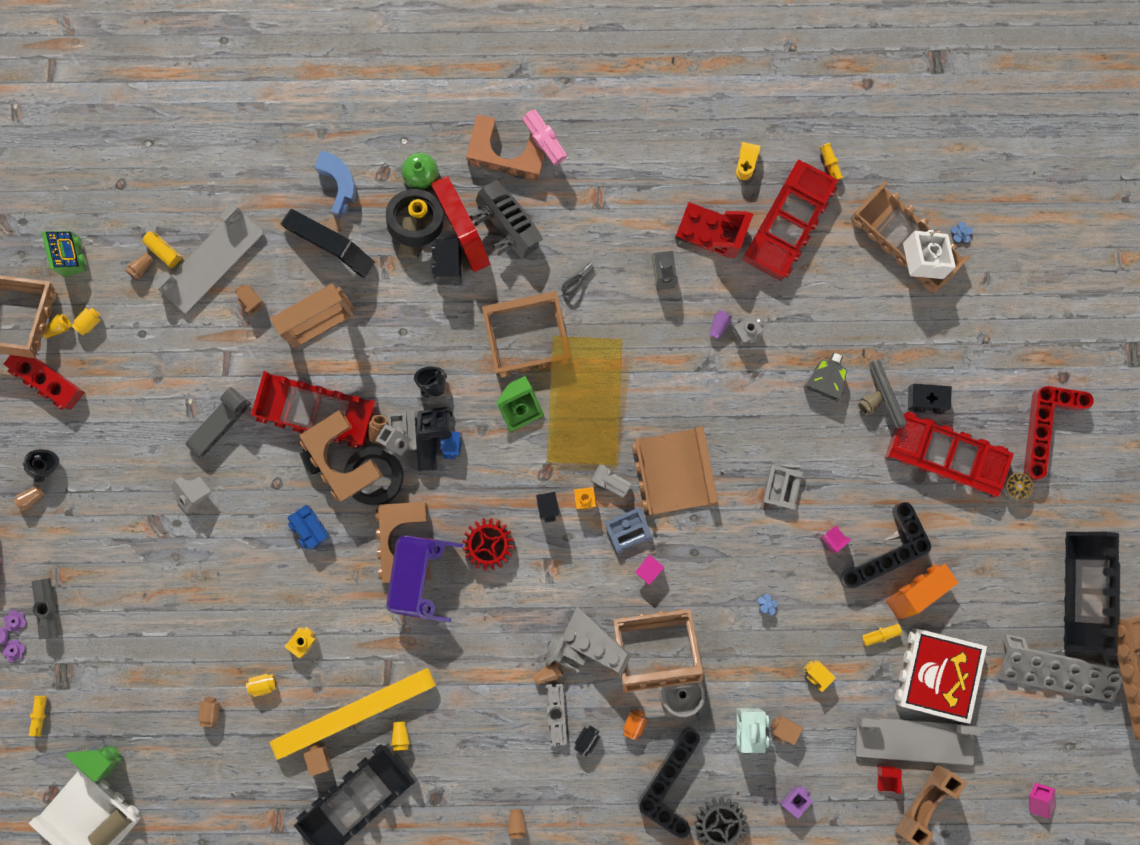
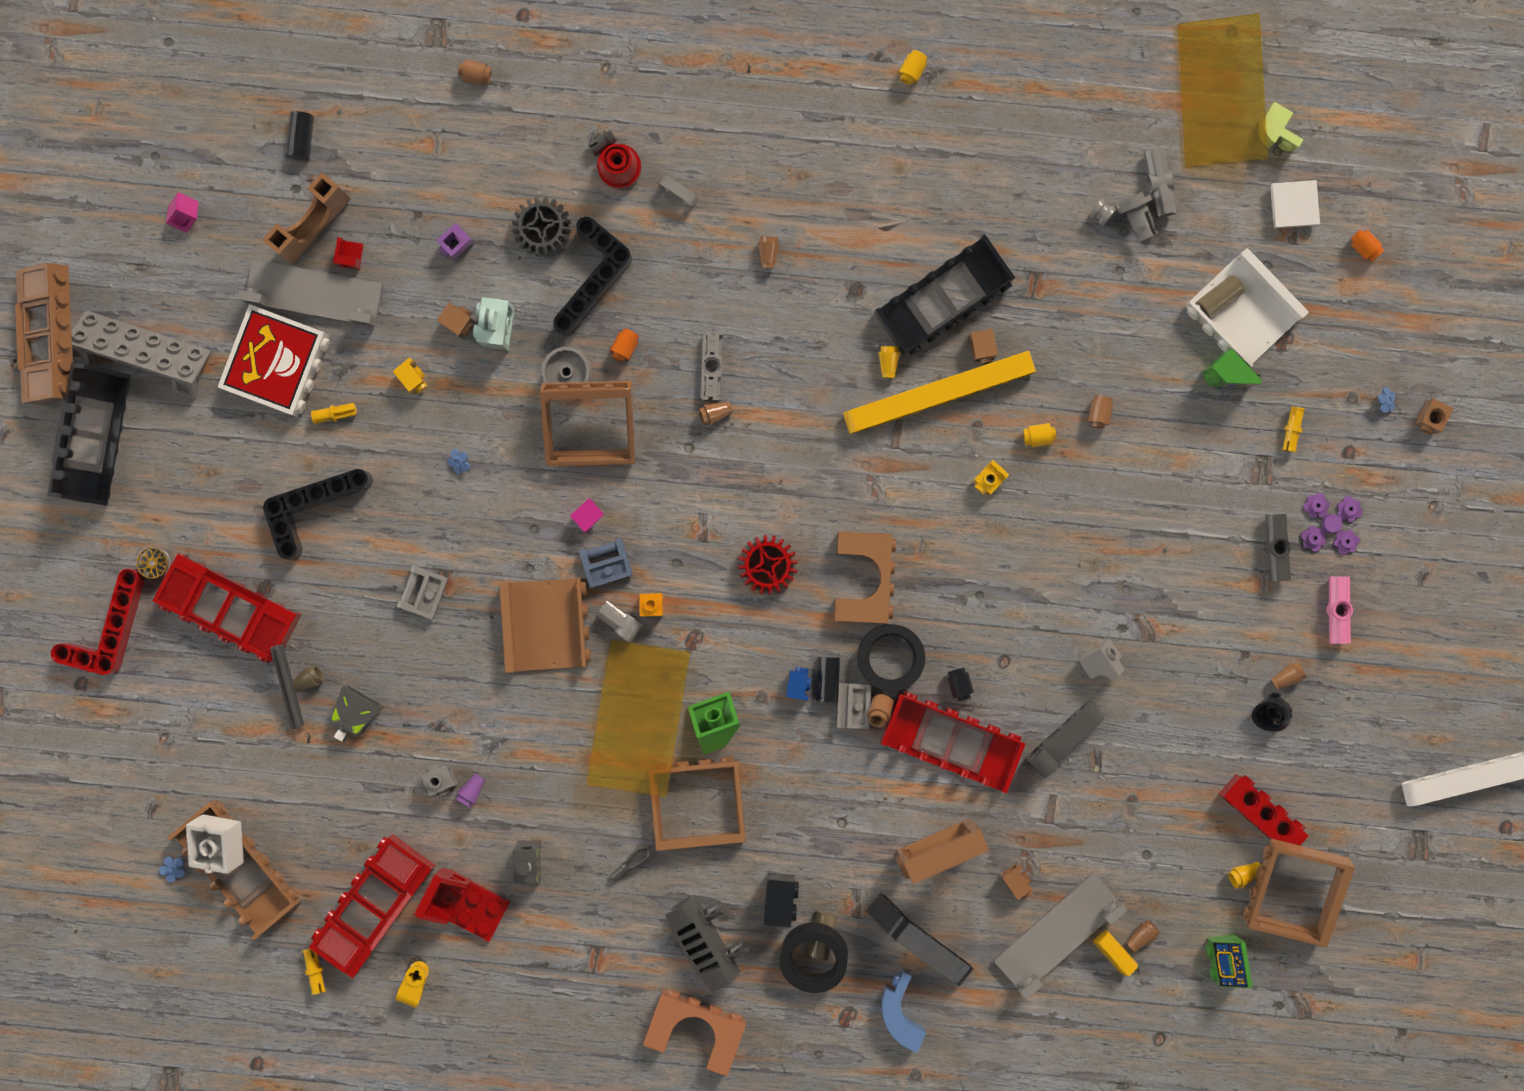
camera: 170 degrees left, 5 degrees up
(86, 321) = (1209, 877): yellow brick -> none
(308, 527) = (971, 606): blue brick -> none
(317, 442) = (951, 702): medium nougat arch -> none
(393, 440) = (858, 695): light grey brick -> none
(409, 576) = (858, 538): dark purple windscreen -> none
(415, 206) = (808, 972): yellow cone -> none
(420, 171) = (802, 1014): bright green cylinder -> none
(428, 422) = (821, 713): black plate -> none
(431, 381) = (814, 760): black helmet -> none
(461, 224) = (759, 945): red beam -> none
(544, 137) = (649, 1038): bright pink piece -> none
(547, 507) = (694, 598): black brick -> none
(558, 651) = (701, 435): light grey piece -> none
(587, 740) = (679, 333): black brick -> none
(594, 642) = (659, 441): light grey wing -> none
(835, 539) = (371, 526): dark pink panel -> none
(922, 592) = (281, 456): orange wedge -> none
(940, 394) = (226, 677): black brick -> none

